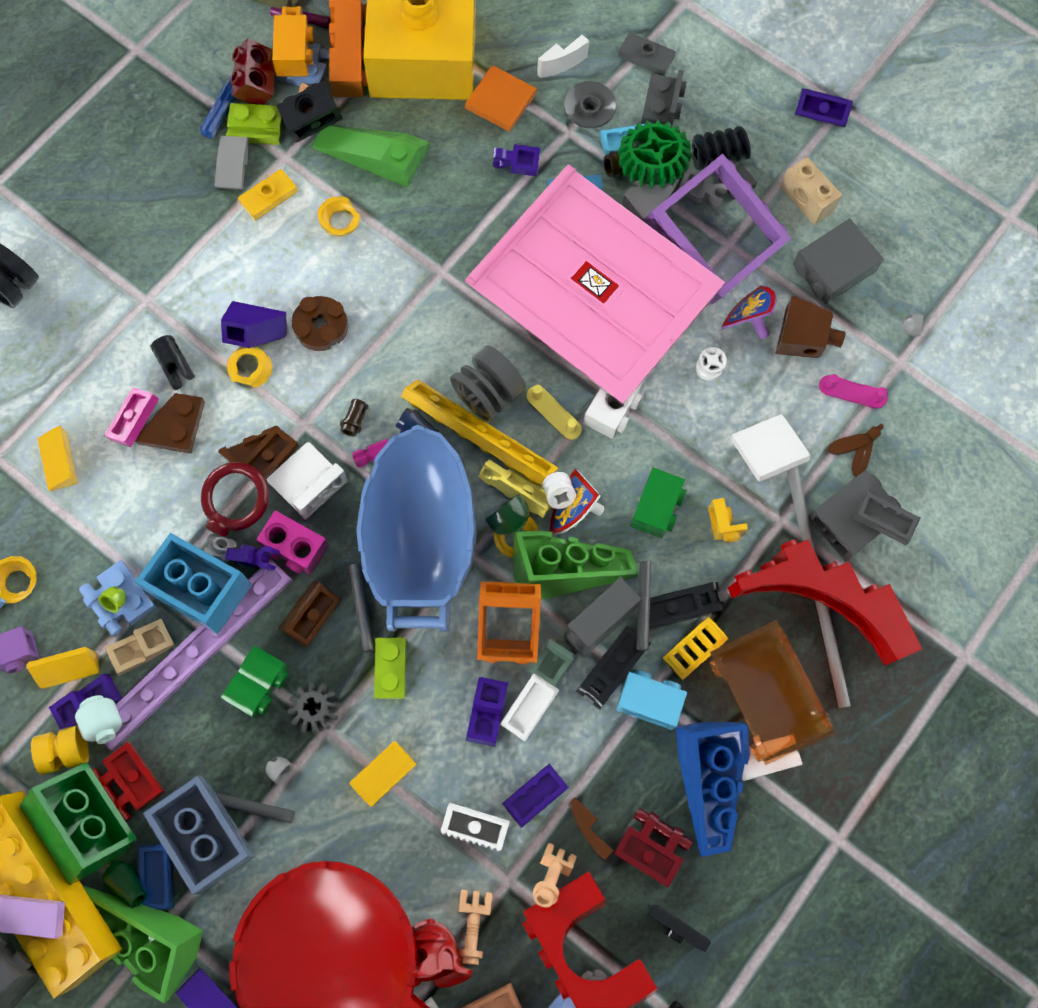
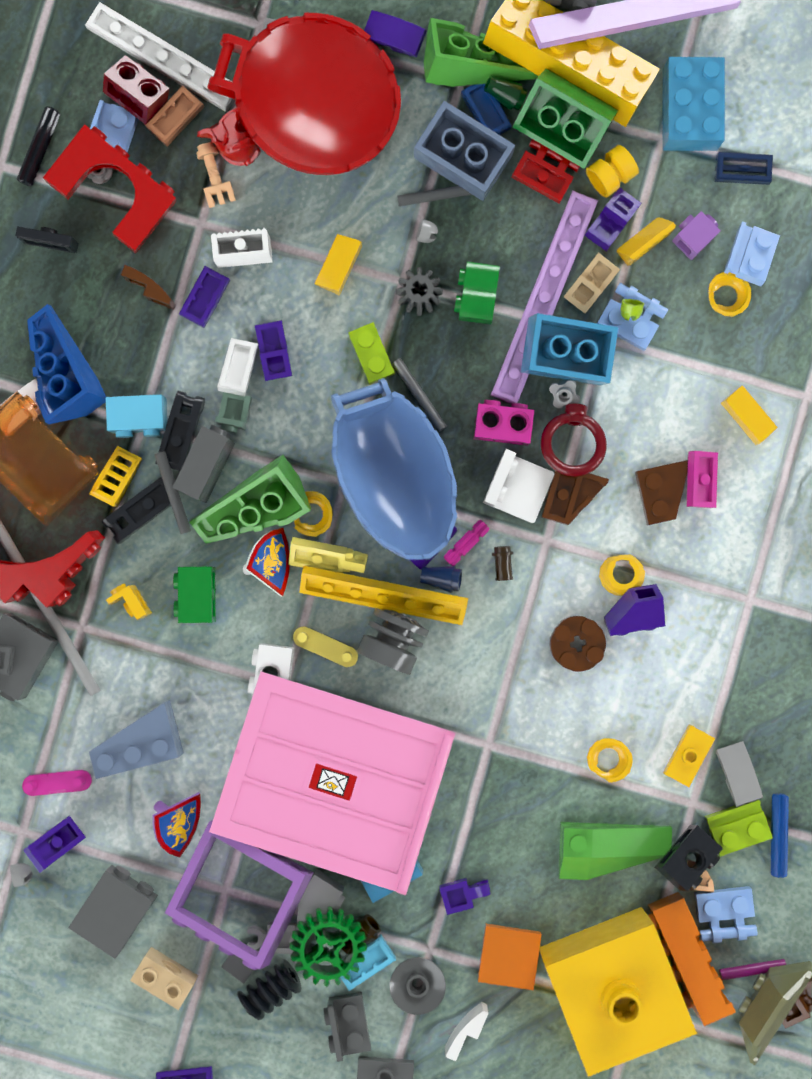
camera: 165 degrees right, 15 degrees up
(98, 719) = (591, 205): light aqua head -> none
(171, 359) = (696, 550): black hinge -> none
(252, 557) = (533, 394): dark purple plate -> none
(253, 72) = (759, 879): dark red brick -> none
(292, 42) = (741, 926): light orange brick -> none
(310, 613) = (462, 372): reddish brown slope -> none
(509, 517) = (320, 520): dark green hair -> none
(510, 596) = (287, 444): orange window -> none
(545, 891) = (162, 216): light nougat hinge -> none
(559, 490) = (287, 566): white wheel -> none
(649, 856) = (91, 286): dark red plate -> none
(711, 357) = (194, 757): white wheel -> none
(763, 389) = (140, 744): none -> sand blue wedge
(770, 447) = (113, 690): white tile -> none
(807, 330) = (119, 824): reddish brown torso -> none
(861, 443) = (30, 730): reddish brown piece -> none
(873, 335) = (54, 844): none -> dark purple slope

